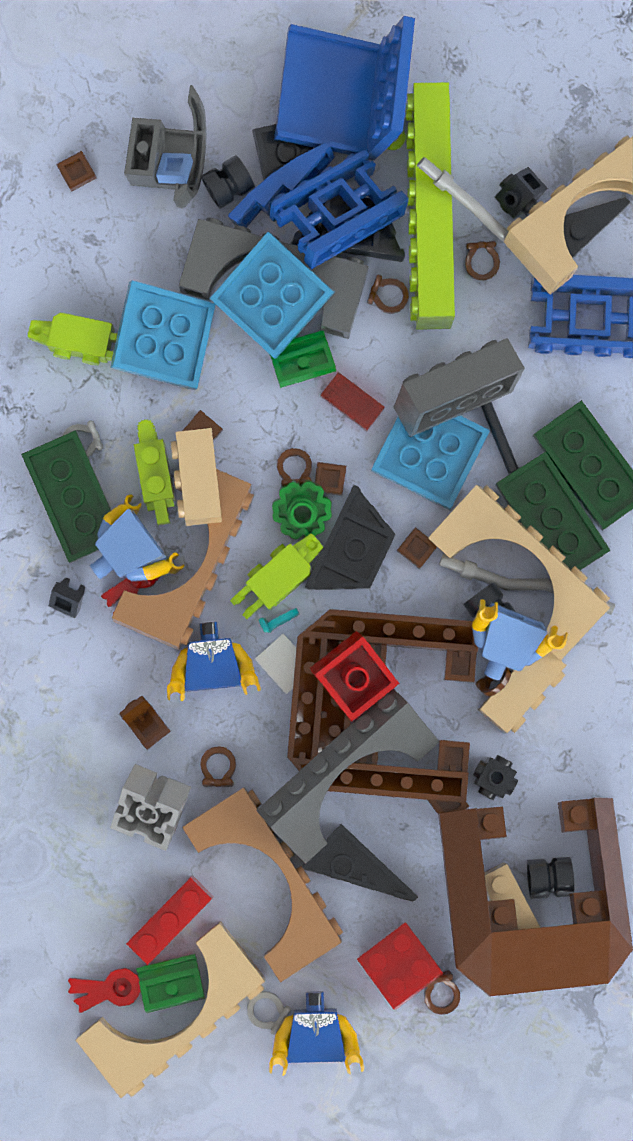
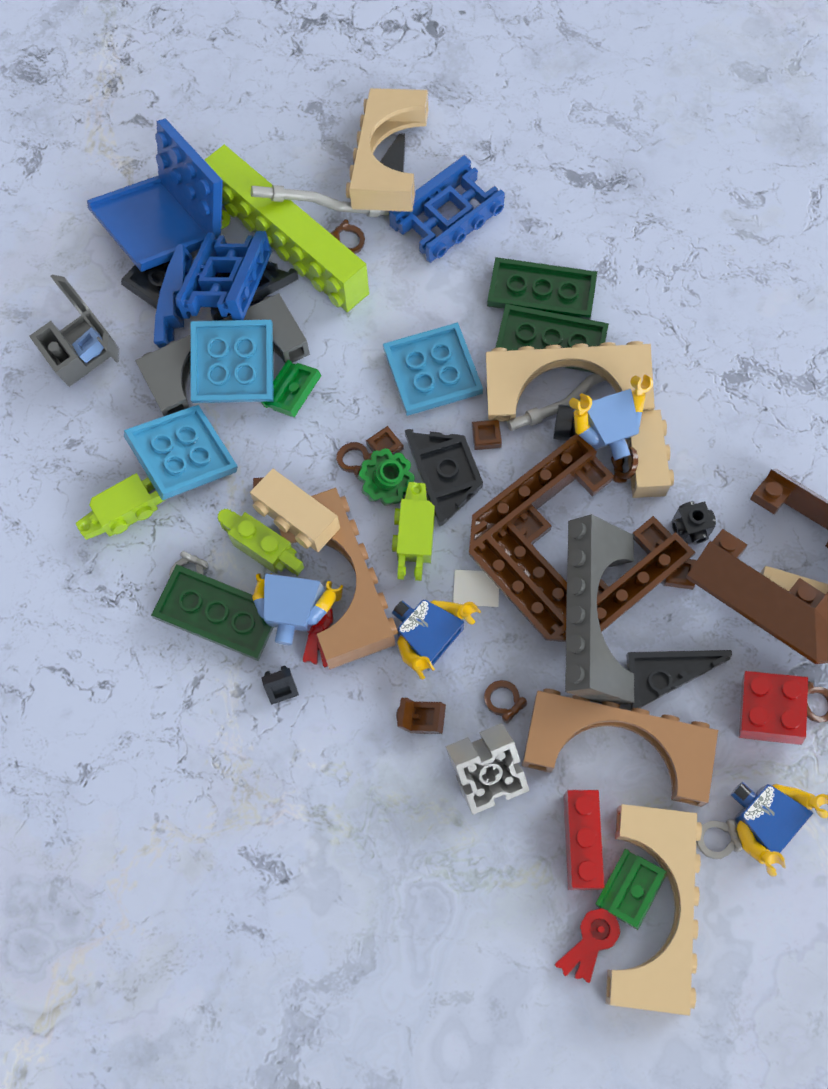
camera: 40 degrees left, 15 degrees down
(76, 171) = (21, 410): reddish brown tile -> none
(228, 181) = (134, 326): black wheel -> none
(269, 626) = (440, 571): teal piece -> none
(352, 401) = (350, 386): clear red tile -> none
(354, 676) = (536, 536): red brick -> none
(374, 298) = (301, 316): reddish brown piece -> none
(458, 386) = (411, 307): dark grey brick -> none
(499, 437) = (463, 323): black bar -> none
(520, 192) = (335, 170): black brick -> none
(550, 877) = (799, 551): black wheel -> none

